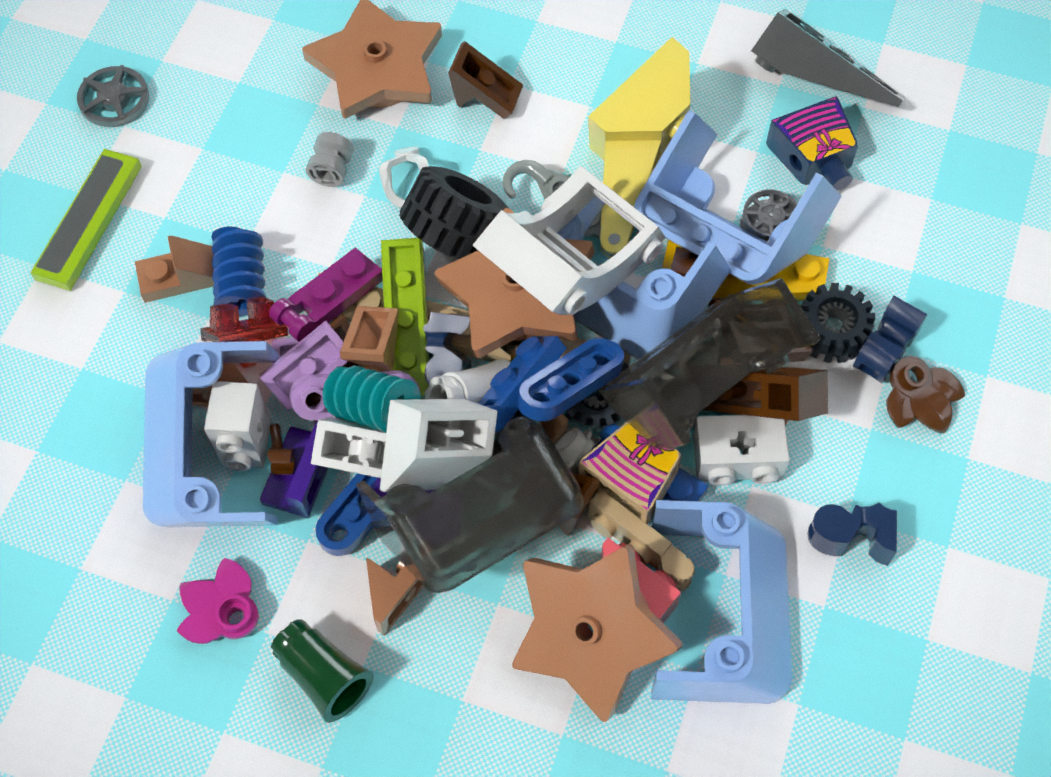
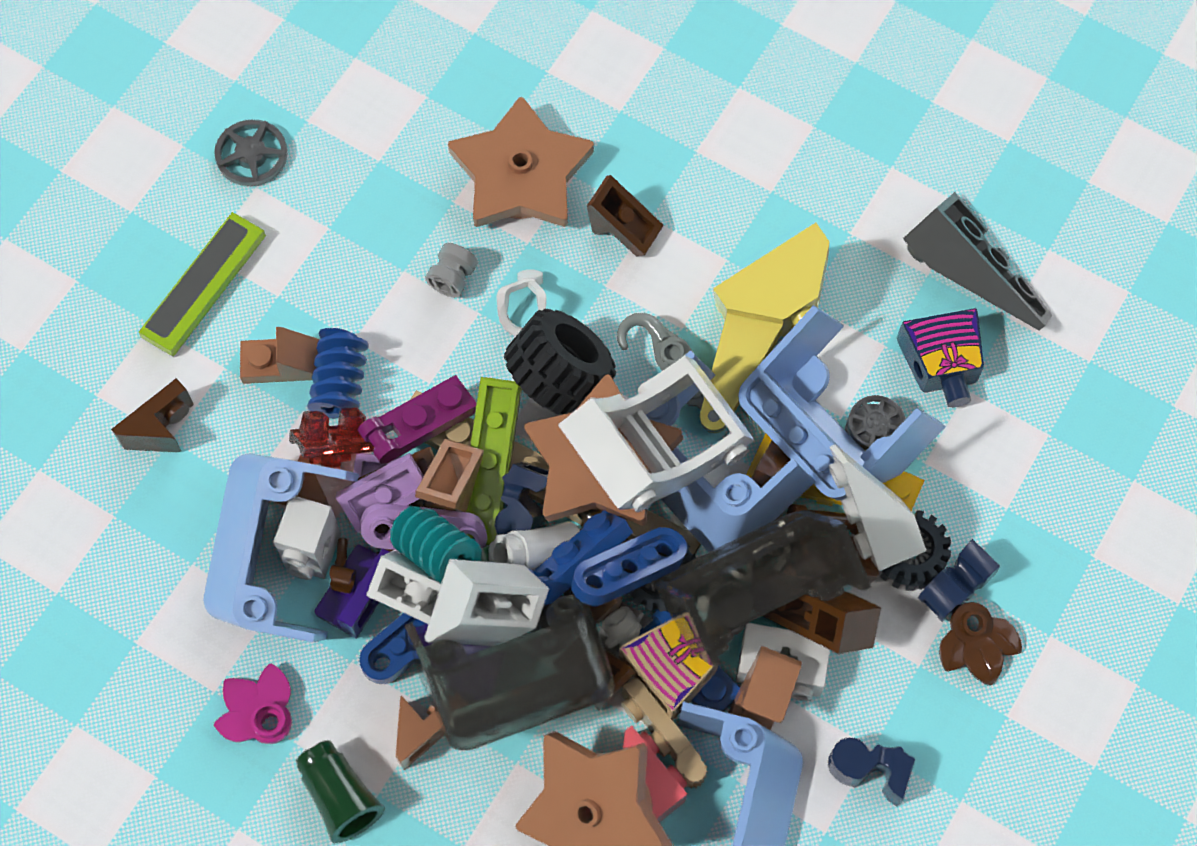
camera: 10 degrees right, 5 degrees up
(56, 354) = (147, 425): none -> reddish brown slope
(735, 470) = (767, 688): none -> nougat slope
(812, 285) = (883, 520): none -> white slope

